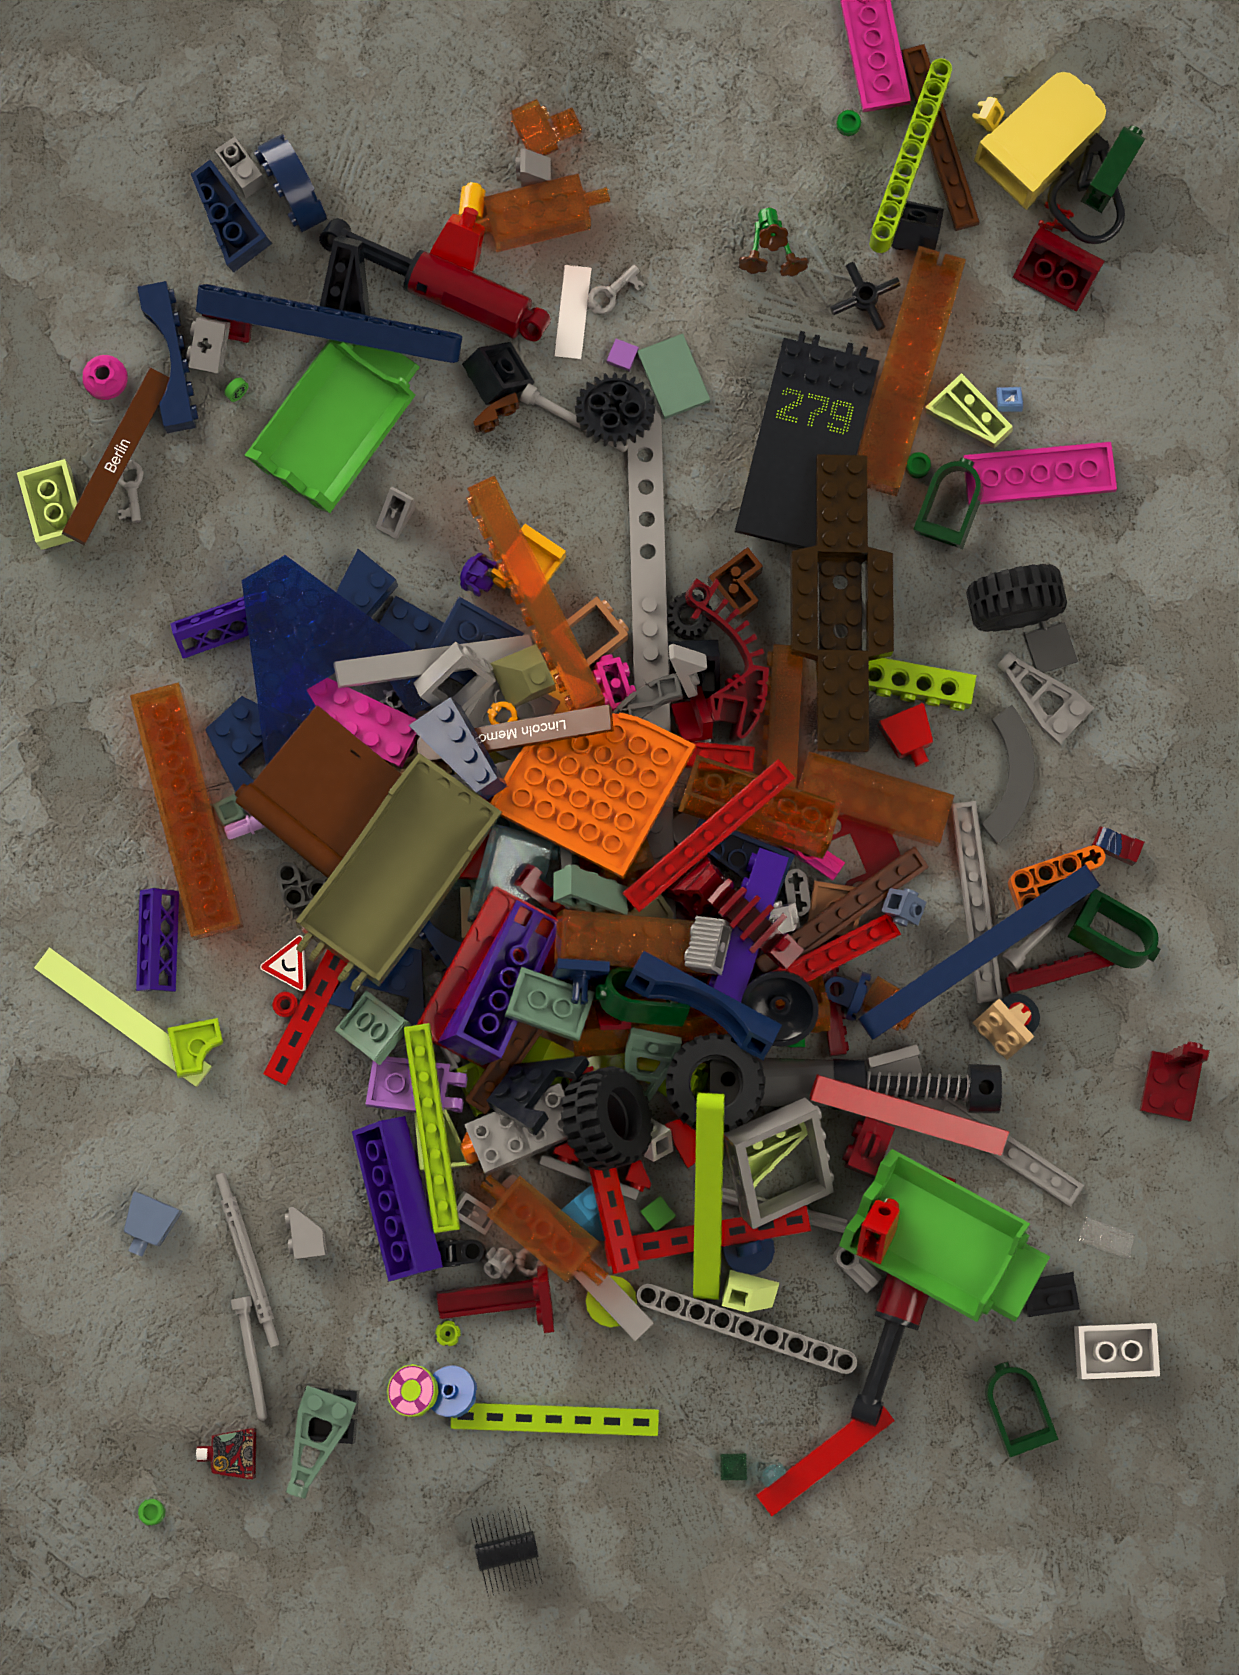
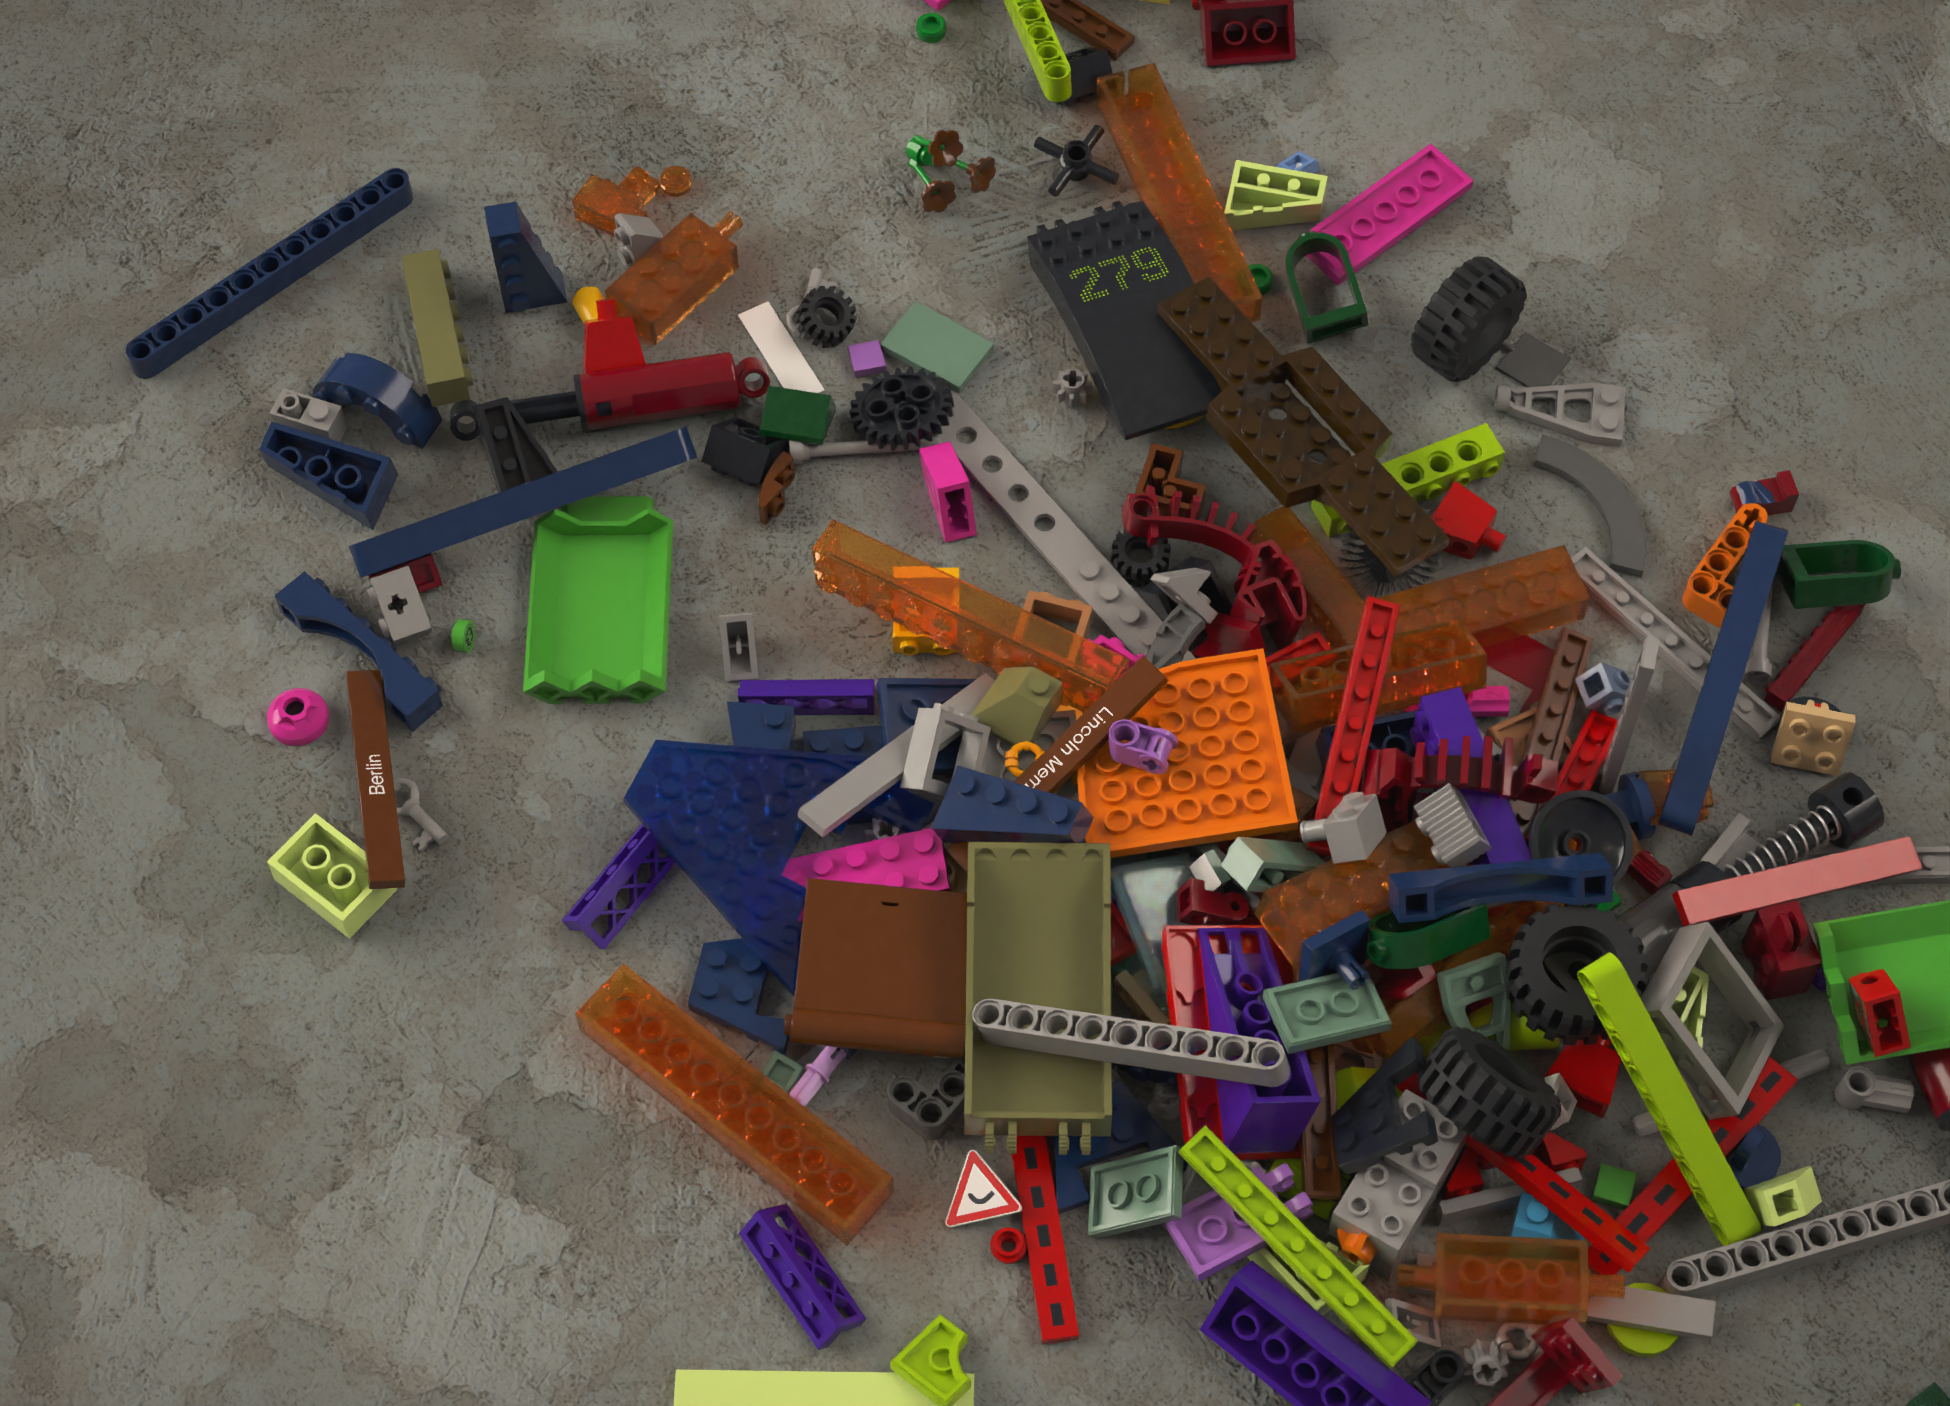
camera: 35 degrees left, 20 degrees down
(278, 30) = (269, 273): none -> dark blue beam
(359, 152) = (435, 327): none -> olive brick
(415, 572) = (813, 696): none -> dark purple fence
(423, 955) = (1142, 1052): none -> light grey beam
(440, 143) = (522, 265): none -> dark blue wedge
(474, 574) = (875, 660): dark purple piece -> none
(543, 372) = (797, 415): none -> dark green slope
(554, 864) = (1209, 869): none -> tile
(570, 765) = (1143, 745): none -> medium lavender piece
(594, 134) = (675, 181): none -> clear orange tile
(601, 488) = (948, 491): none -> dark pink slope
(627, 301) = (814, 327): none -> black tyre
(646, 905) = (1350, 829): none -> light grey brick
(733, 460) = (1072, 387): none -> light grey gear
(866, 953) = (1629, 715): none -> light grey tile

